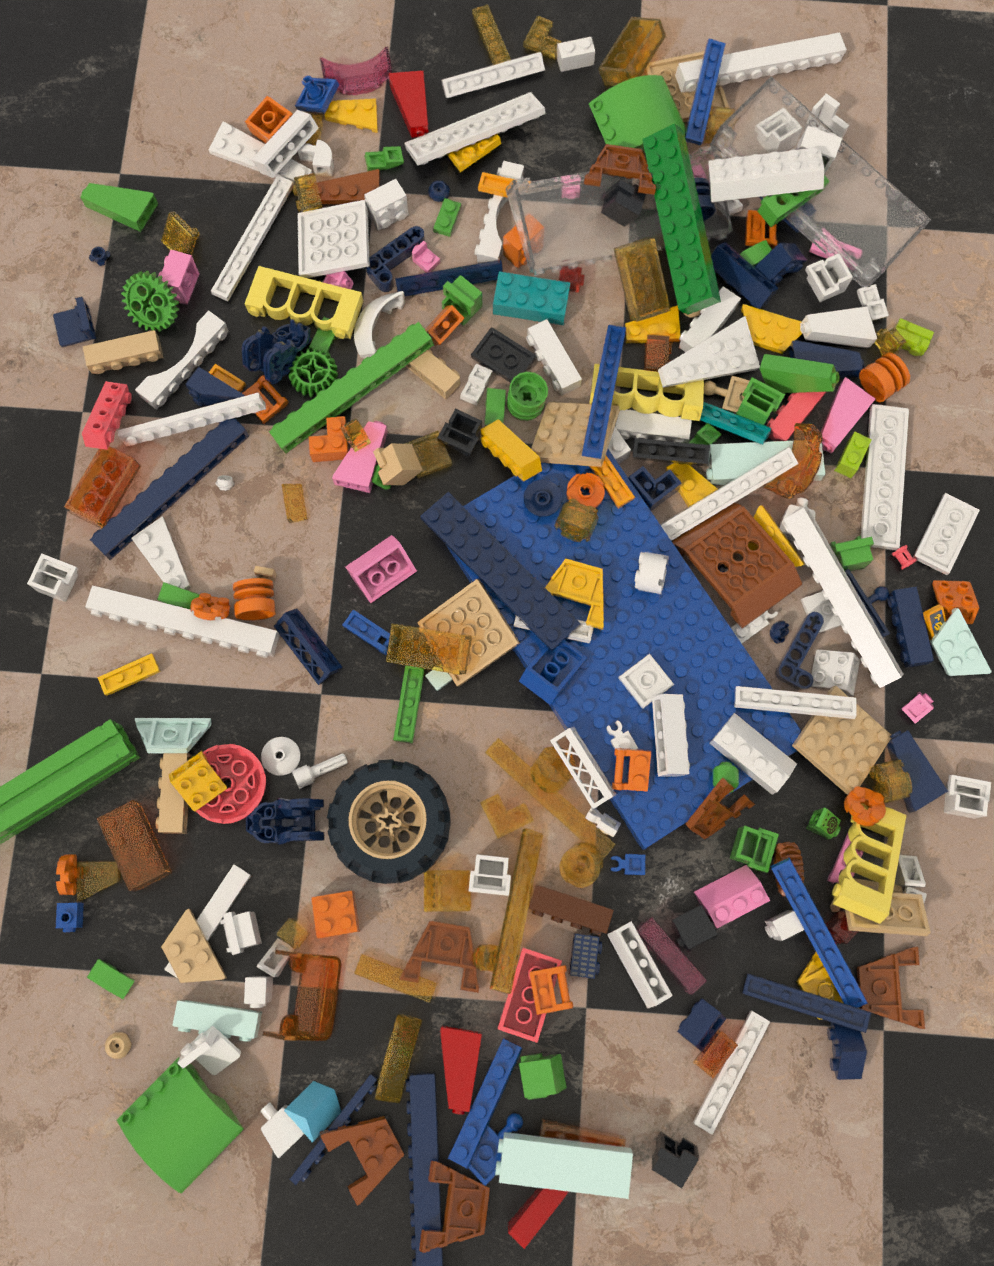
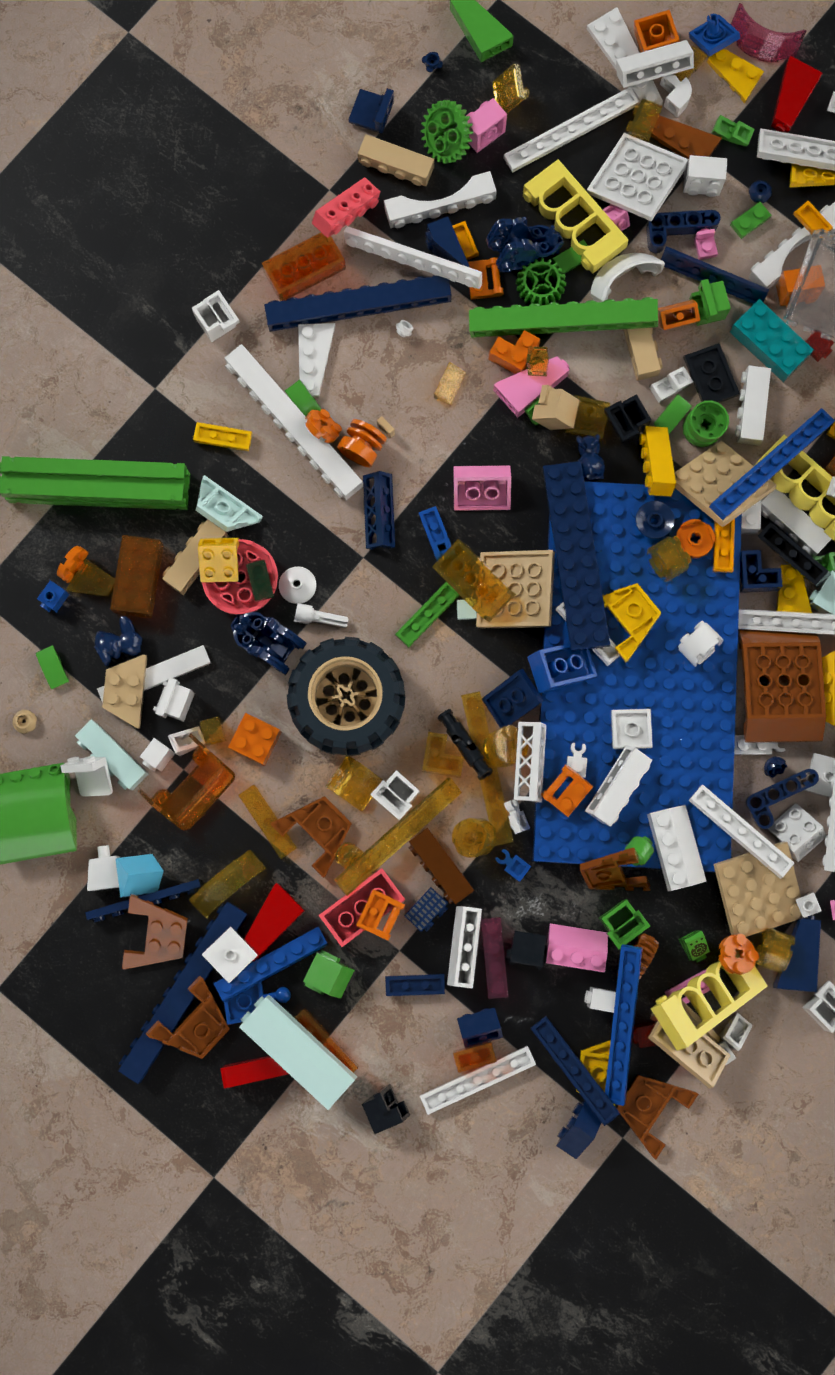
camera: 40 degrees right, 5 degrees up
(151, 922) = (110, 645): none -> dark blue animal
(246, 774) = (260, 580): none -> clear green plate
(445, 1122) = (229, 955): none -> white plate
(457, 487) = (592, 464): none -> dark blue animal
(504, 785) = (464, 742): none -> black piece
(531, 725) = (512, 699): none -> dark blue plate
(621, 1028) = (415, 985): none -> dark blue plate
(888, 724) = (808, 904): none -> white bracket

